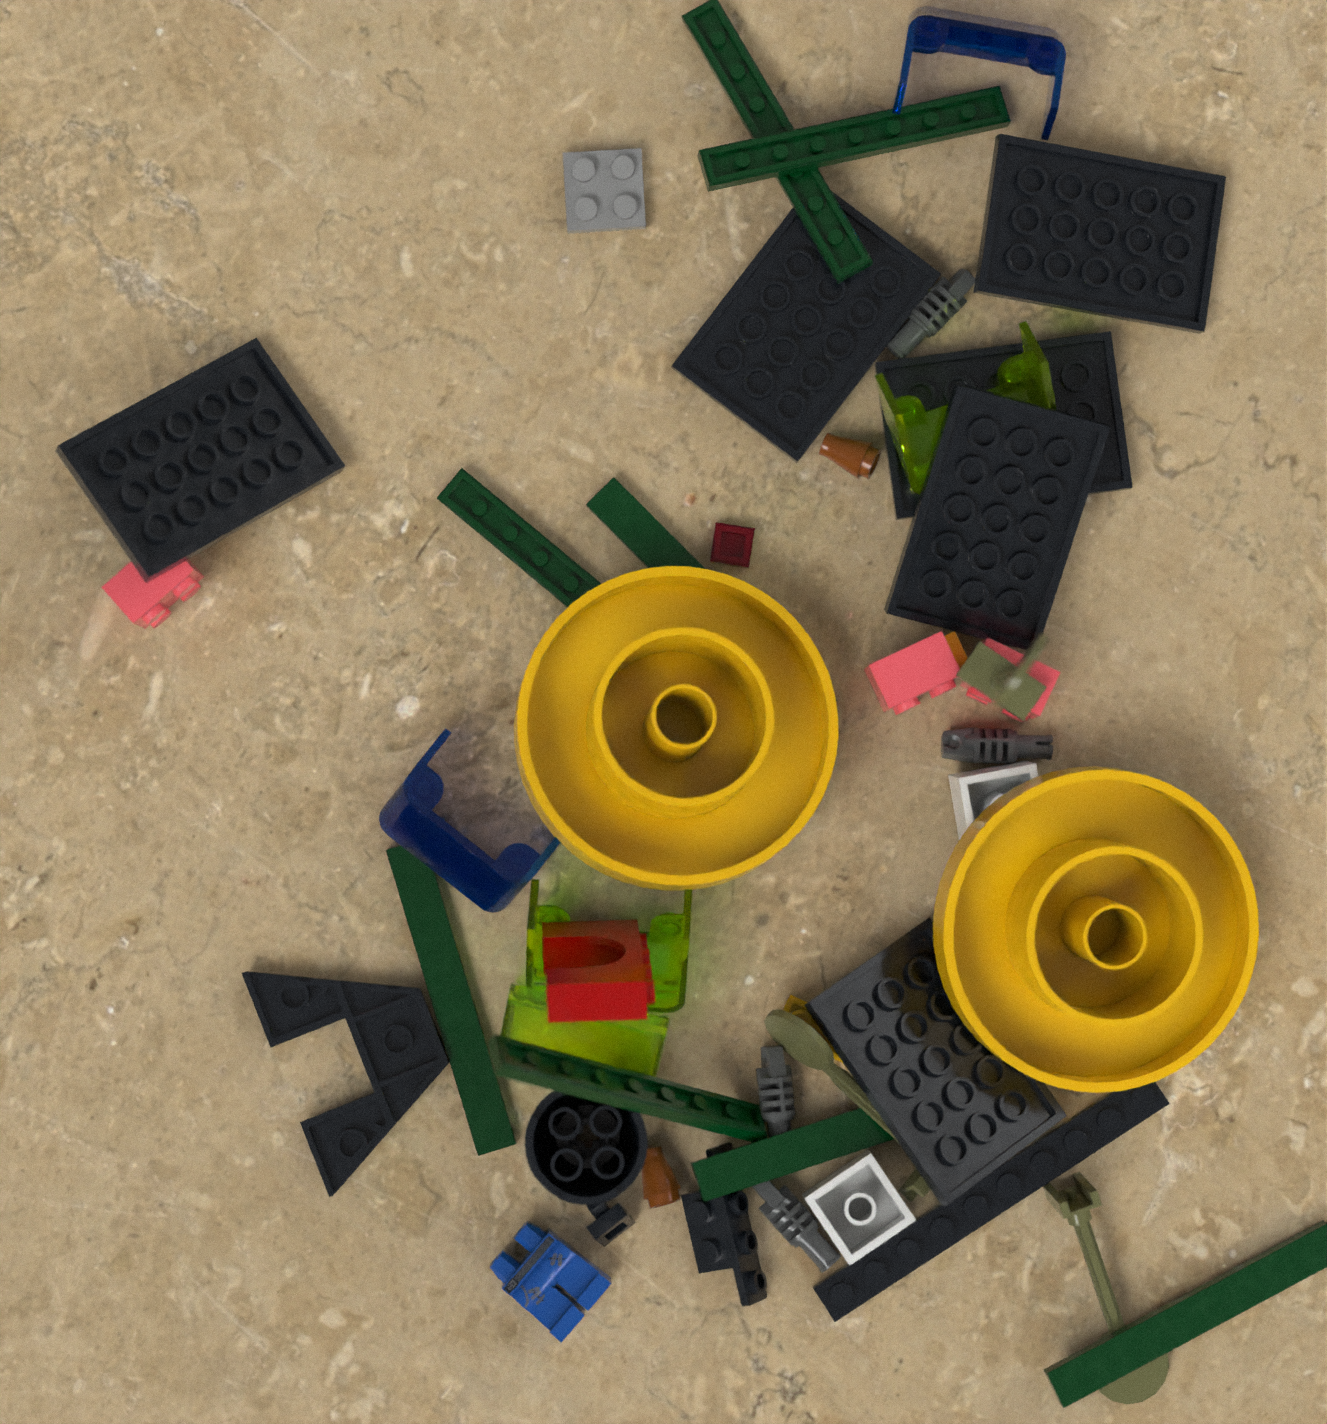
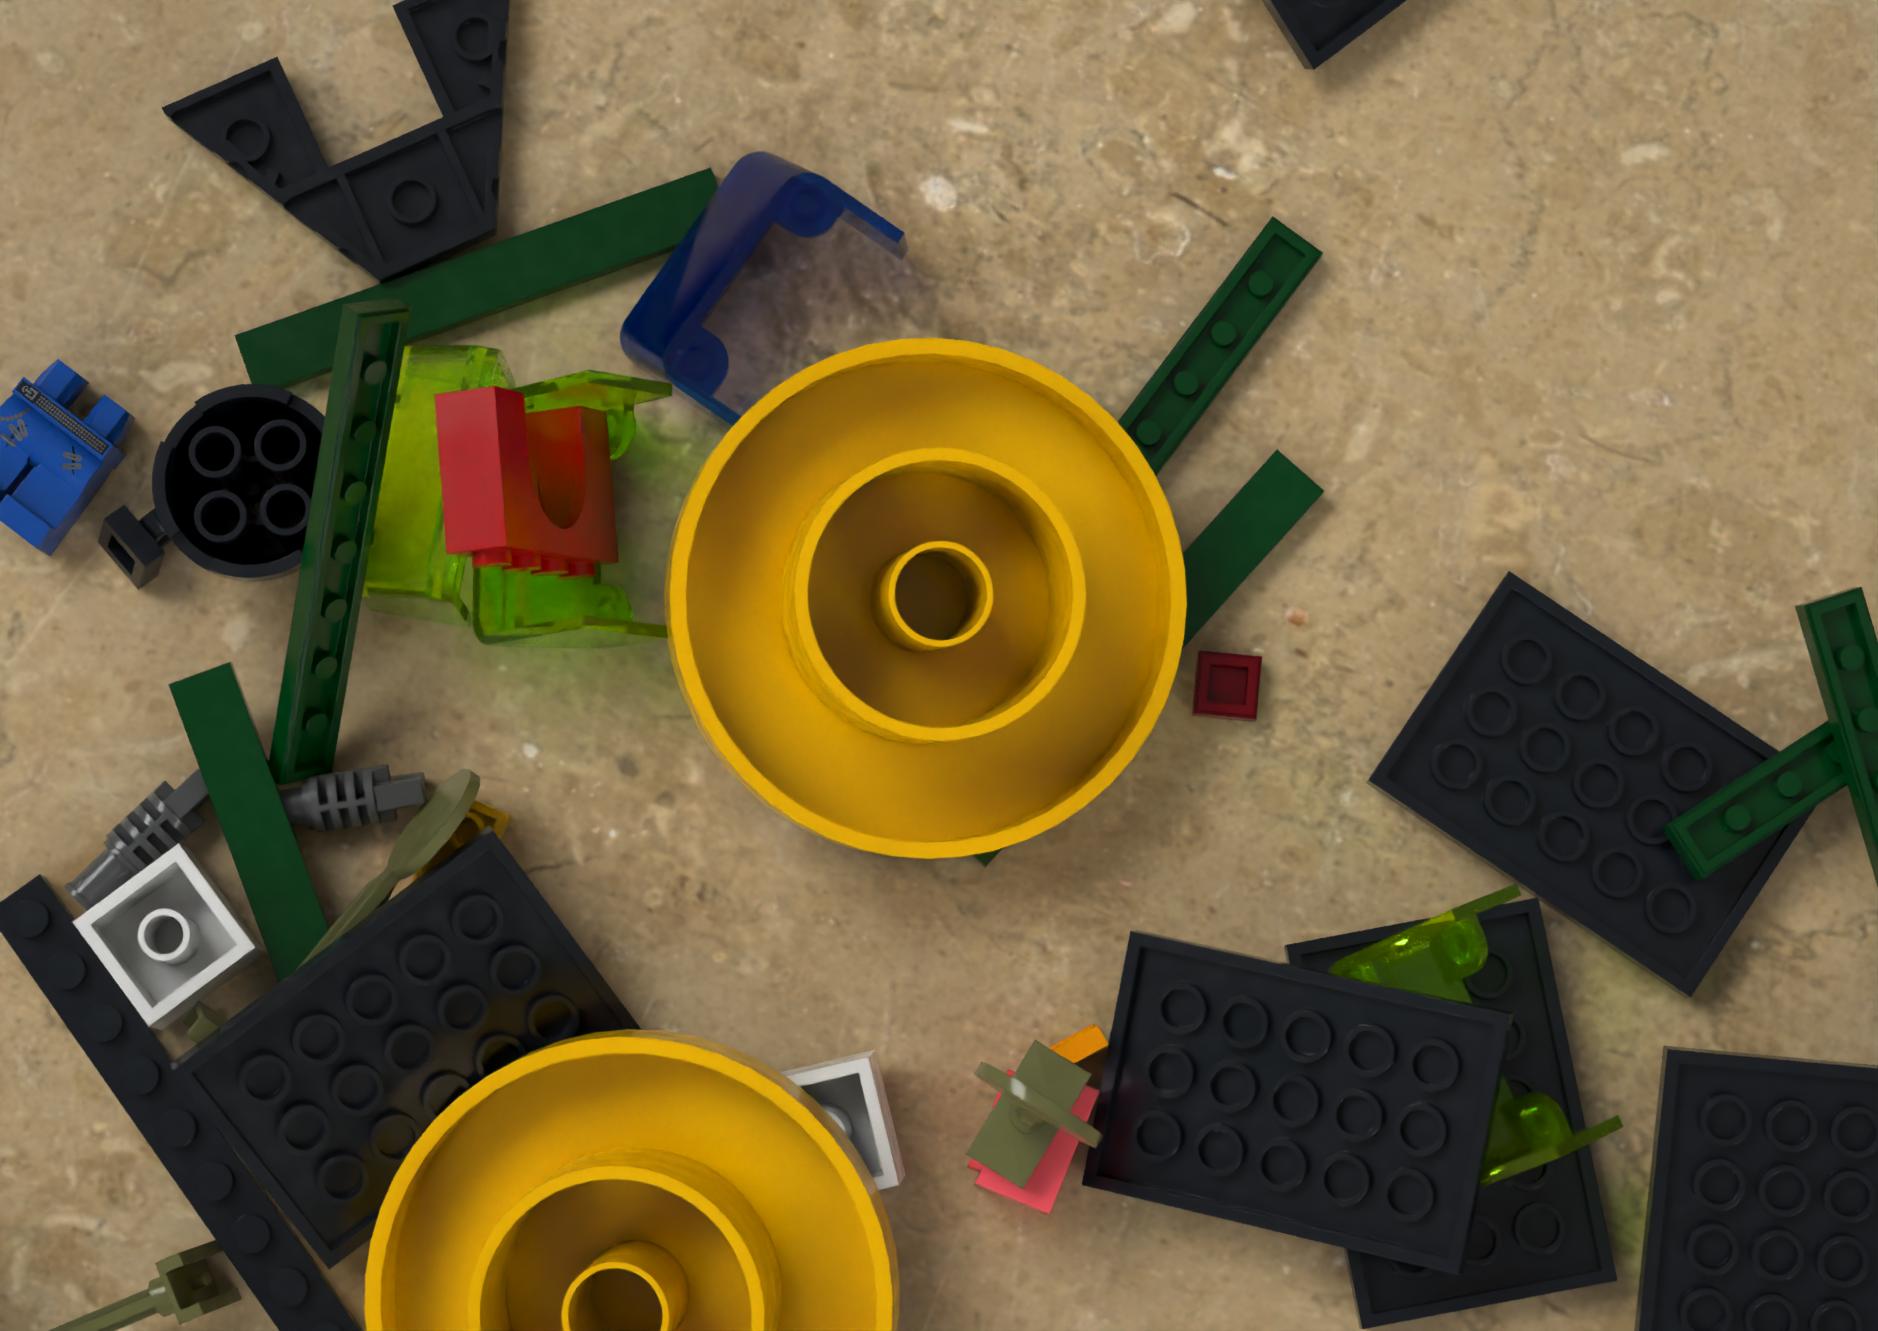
camera: 85 degrees right, 5 degrees down
(604, 190) = (1782, 454): light grey plate -> none
(658, 1180) = (206, 618): dark orange cone -> none
(725, 1239) = (114, 732): black bracket -> none
(850, 454) = (1384, 869): dark orange cone -> none
(913, 672) = (1034, 978): coral brick -> none
(932, 312) = (1624, 986): dark grey hinge -> none
(994, 745) = (926, 1122): dark grey hinge -> none

